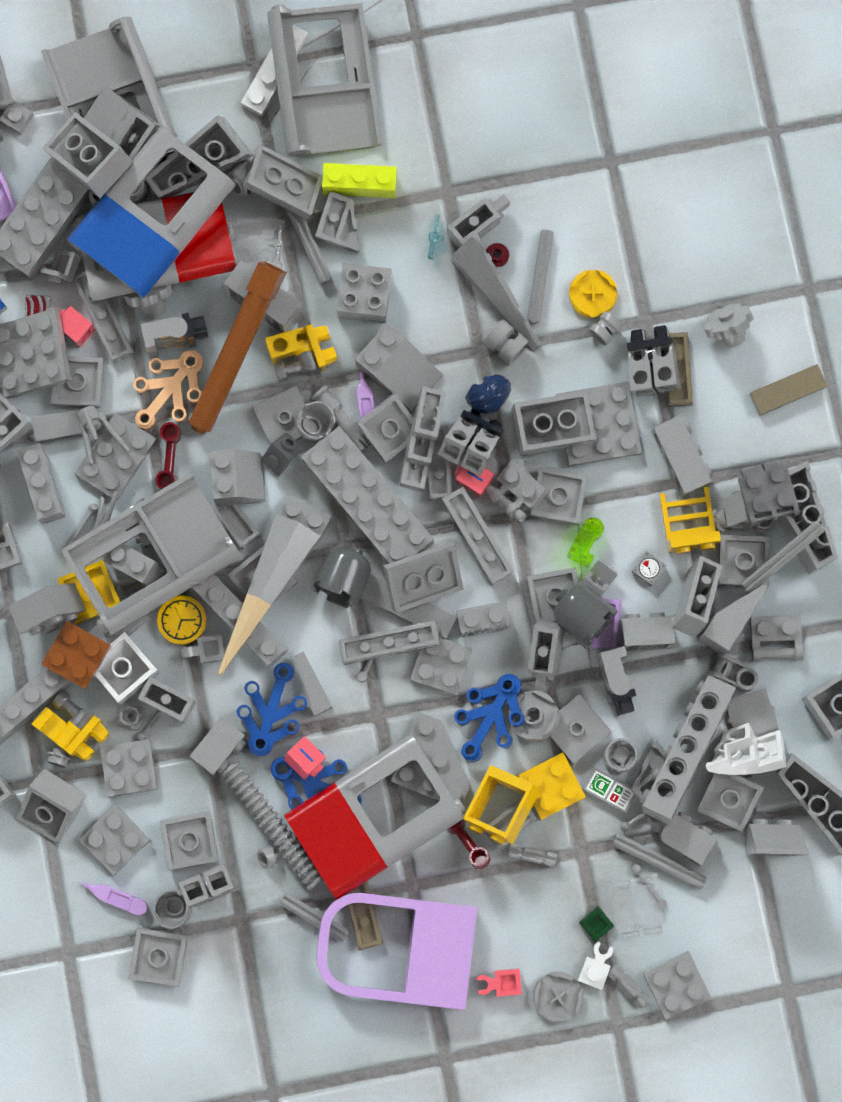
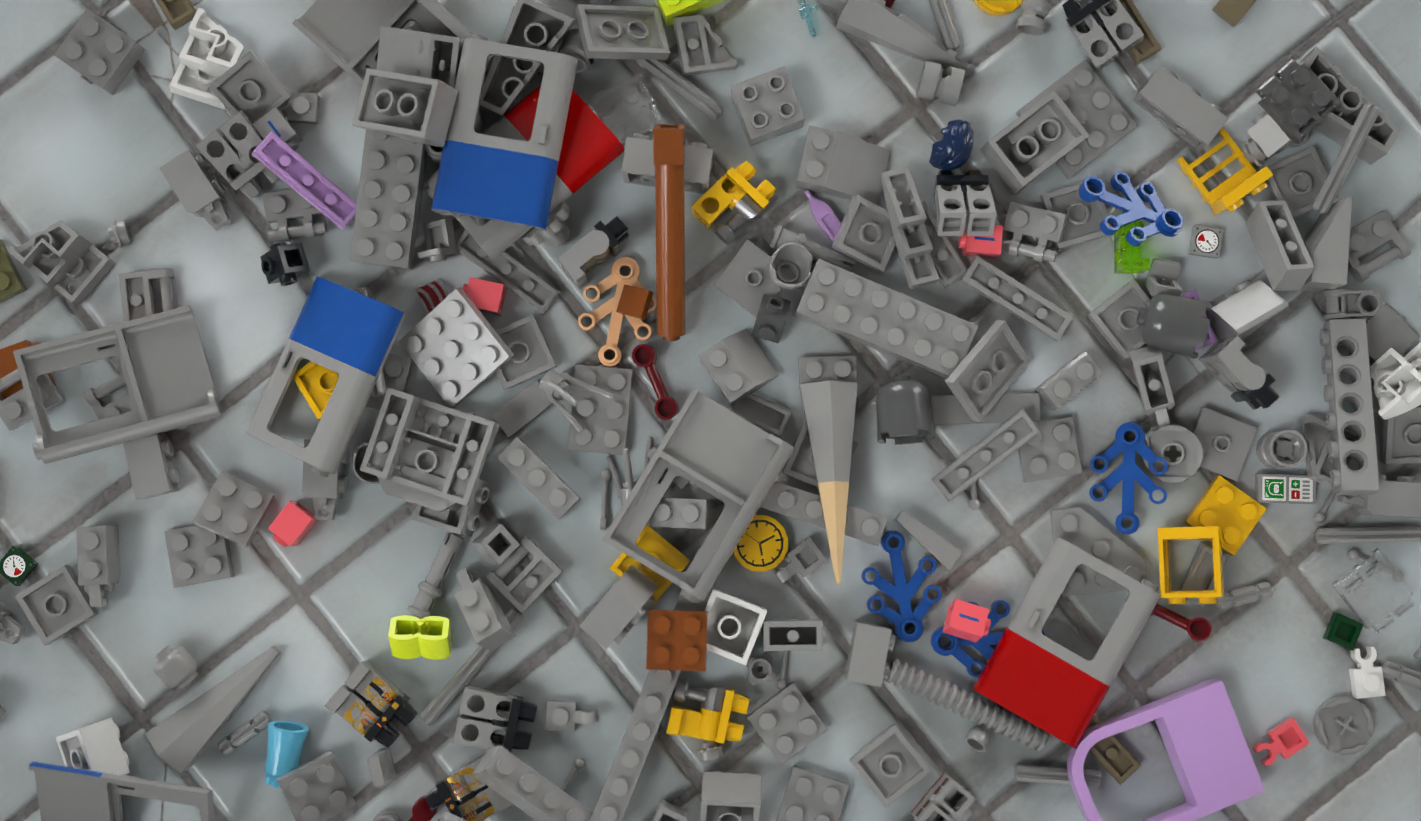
camera: 30 degrees left, 5 degrees up
(184, 388) = (634, 302): none -> dark orange tile
(603, 513) = (1163, 220): none -> blue plant

